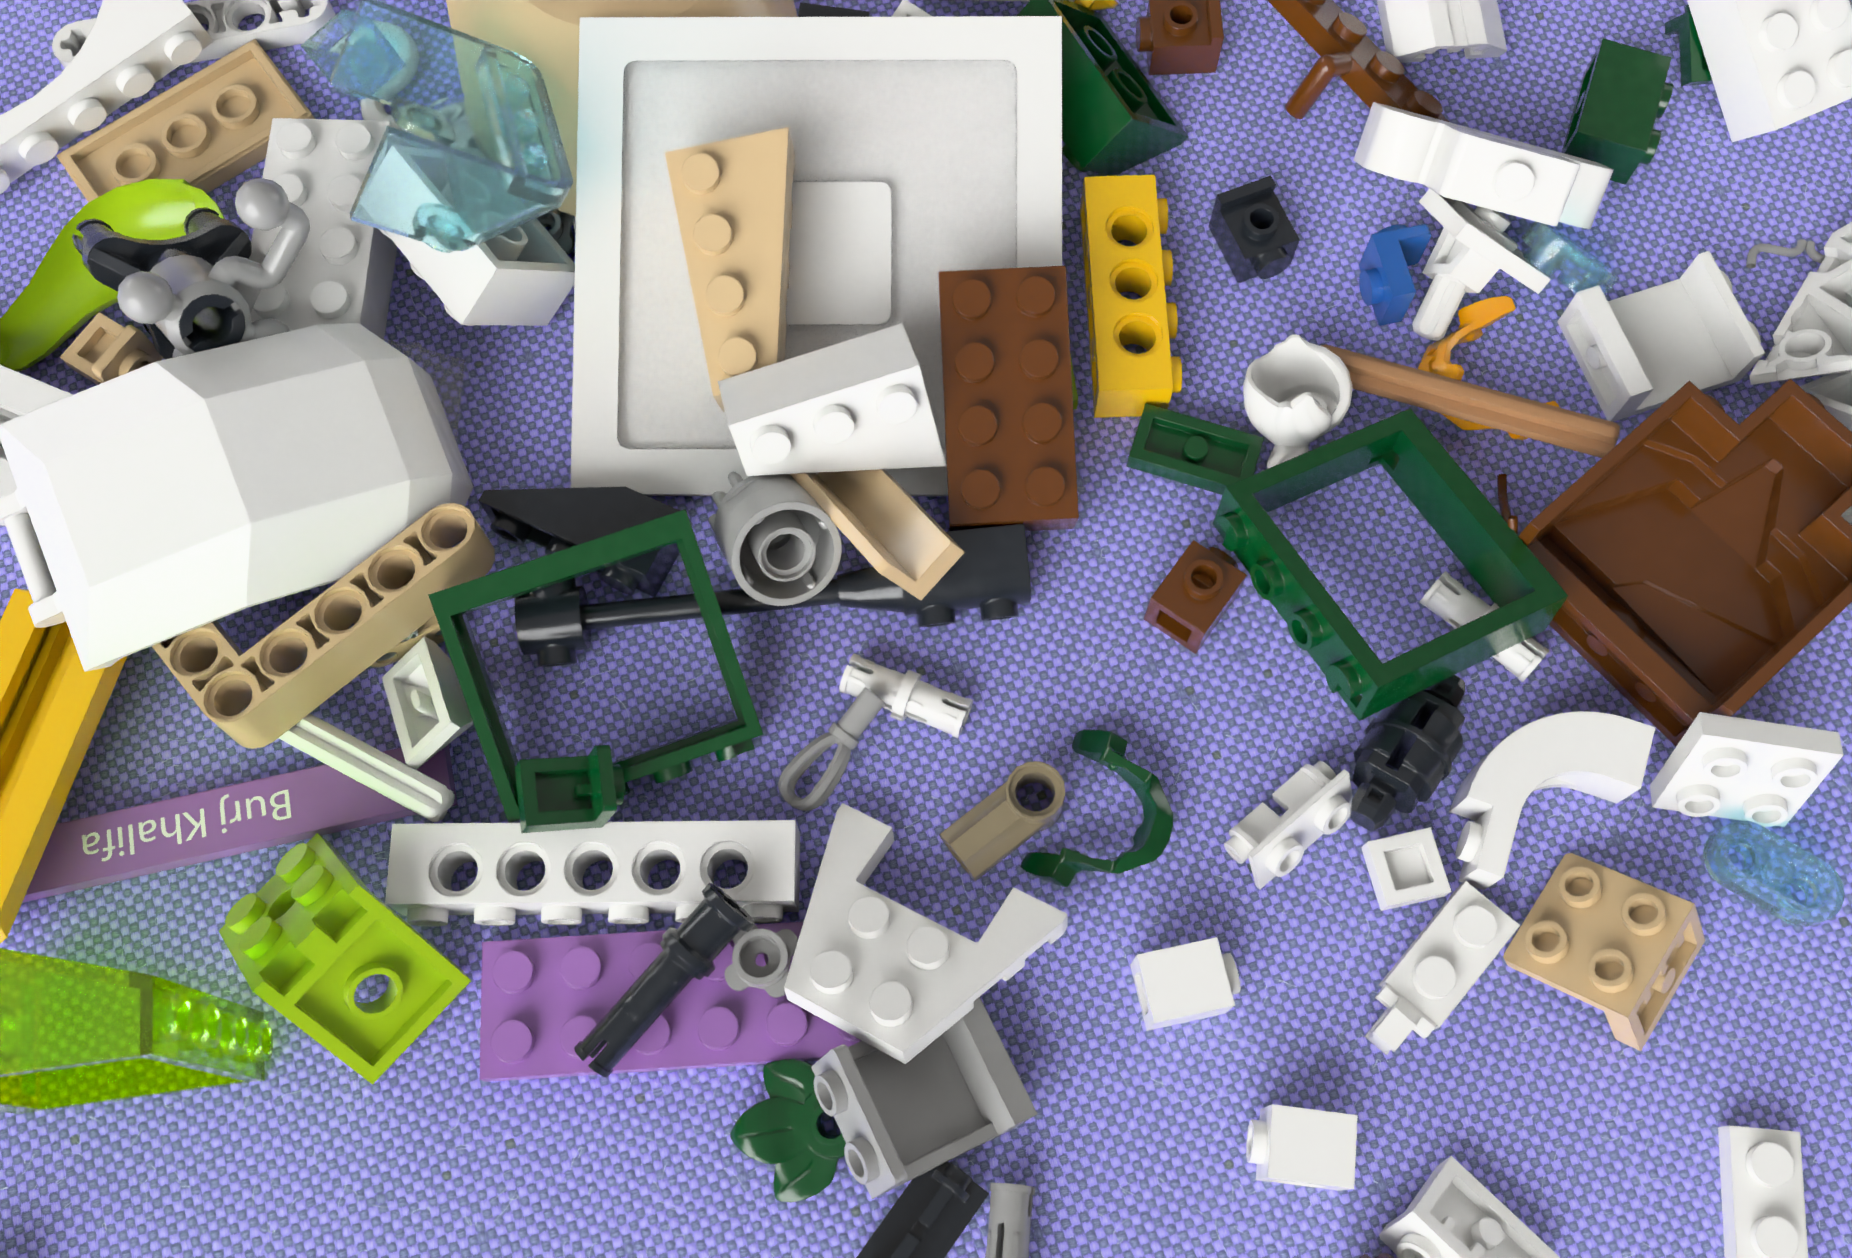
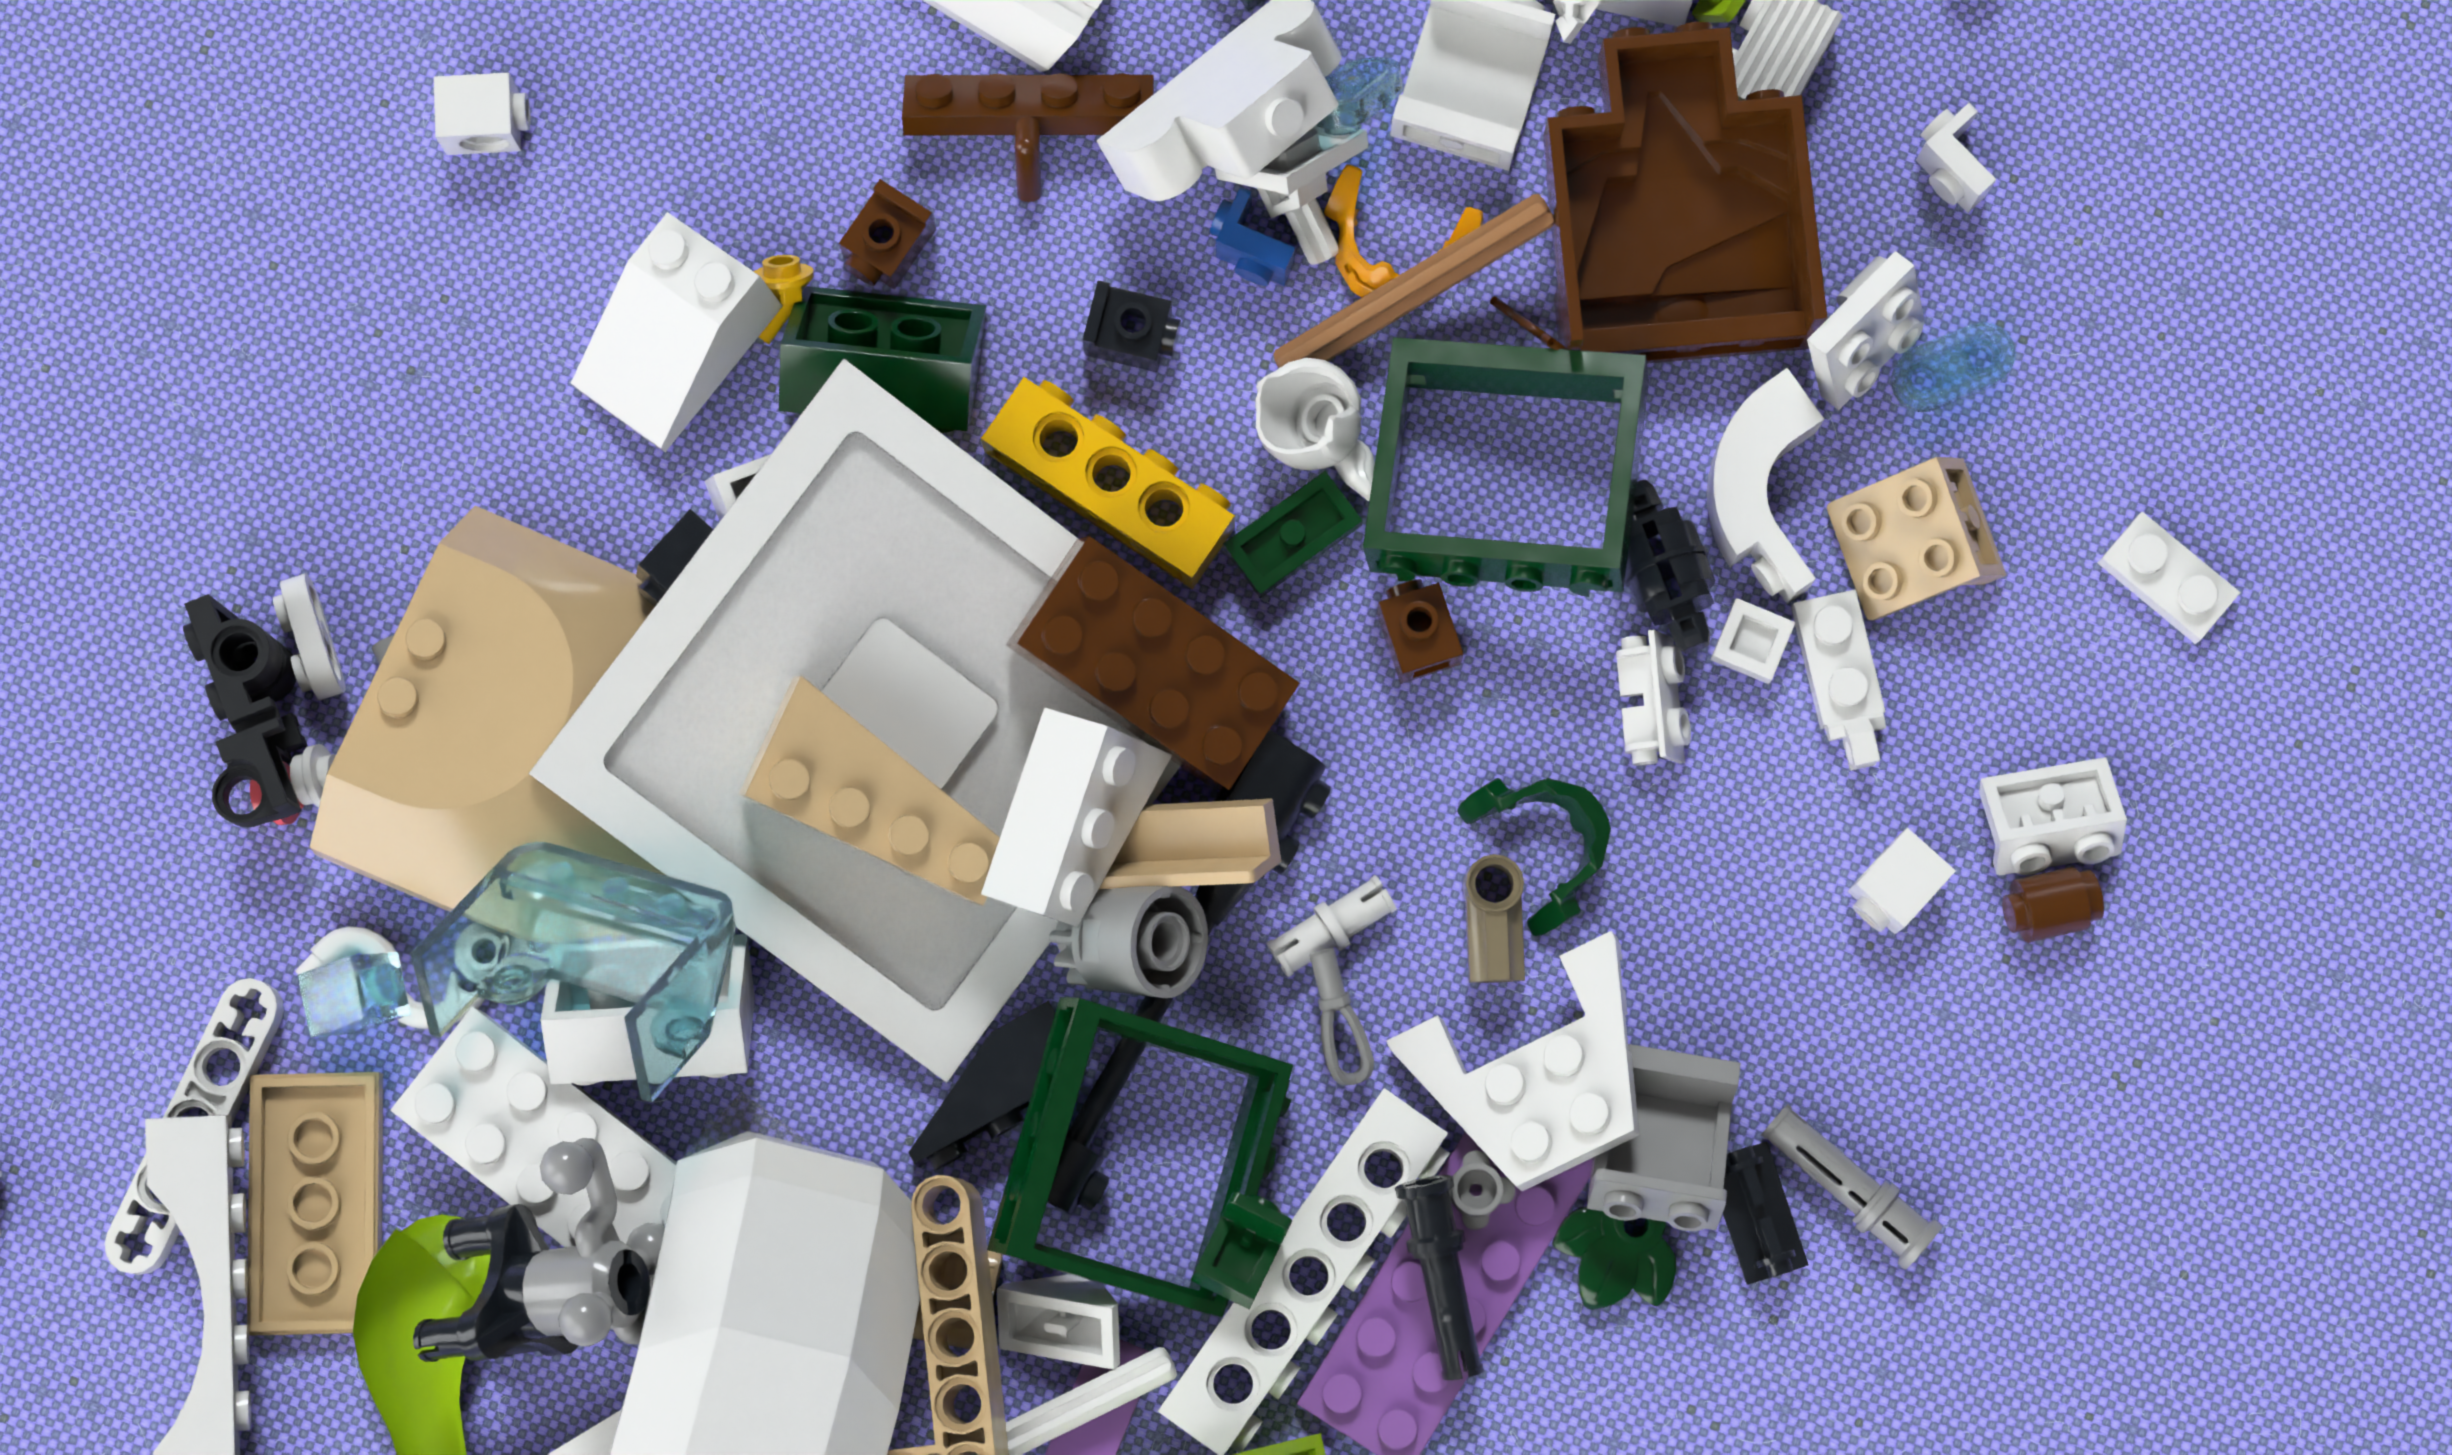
camera: 55 degrees left, 10 degrees up
(109, 350) = (517, 1400): tan bracket -> none
(1185, 983) = (1719, 878): white brick -> none
(1460, 606) = (1600, 423): white pin -> none

